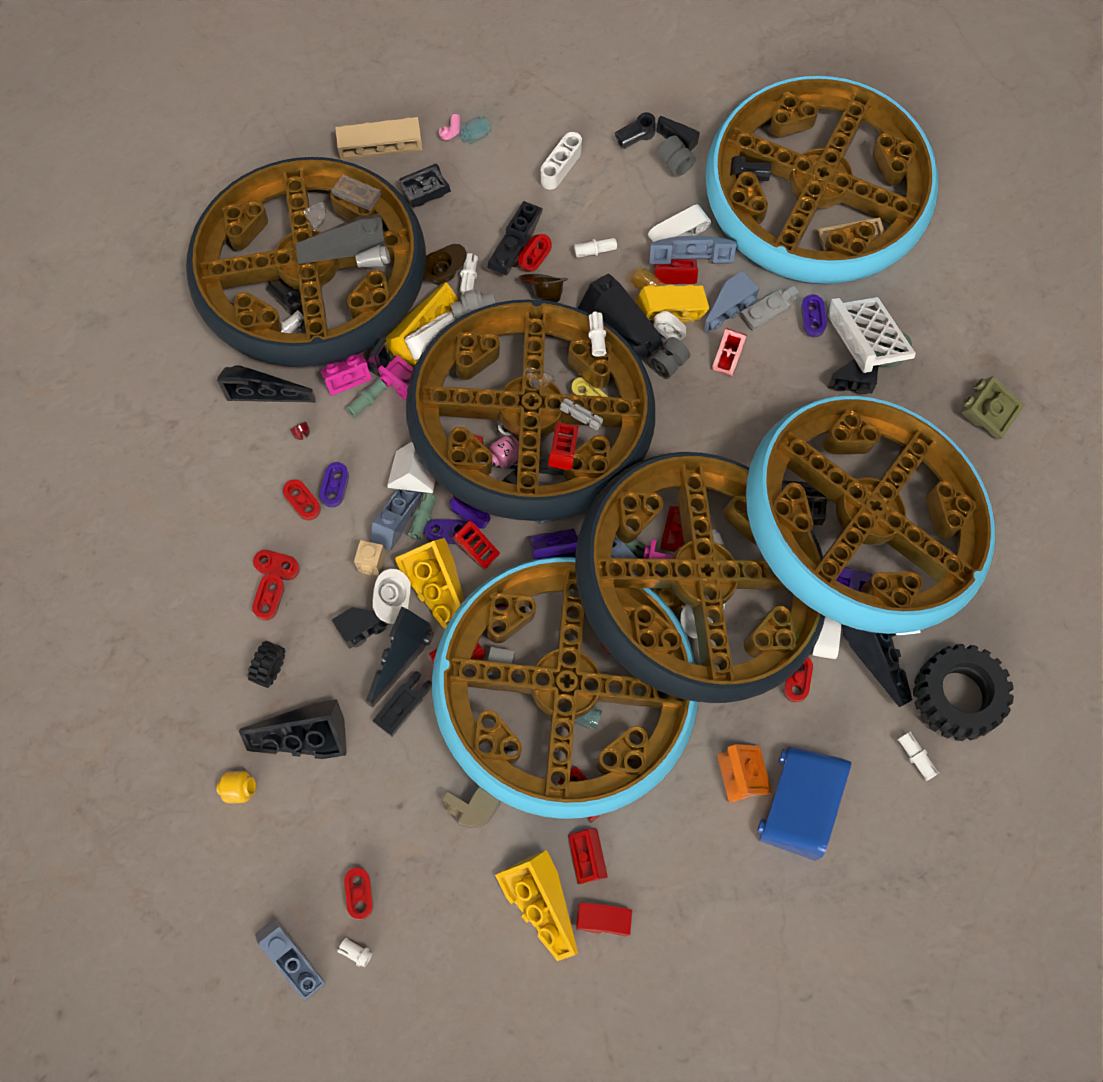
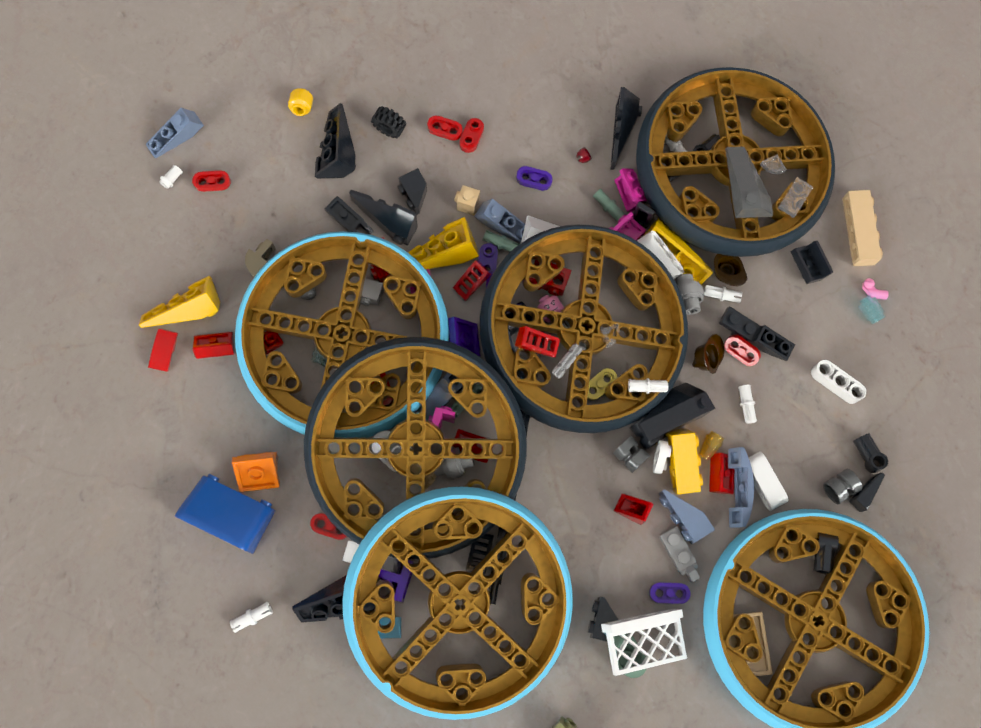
camera: 90 degrees right, 5 degrees up
(302, 501) = (522, 154): red plate -> none
(373, 257) = (727, 207): light grey cone -> none
(390, 594) = (433, 212): white piece -> none
(986, 674) = (268, 657): black tyre -> none

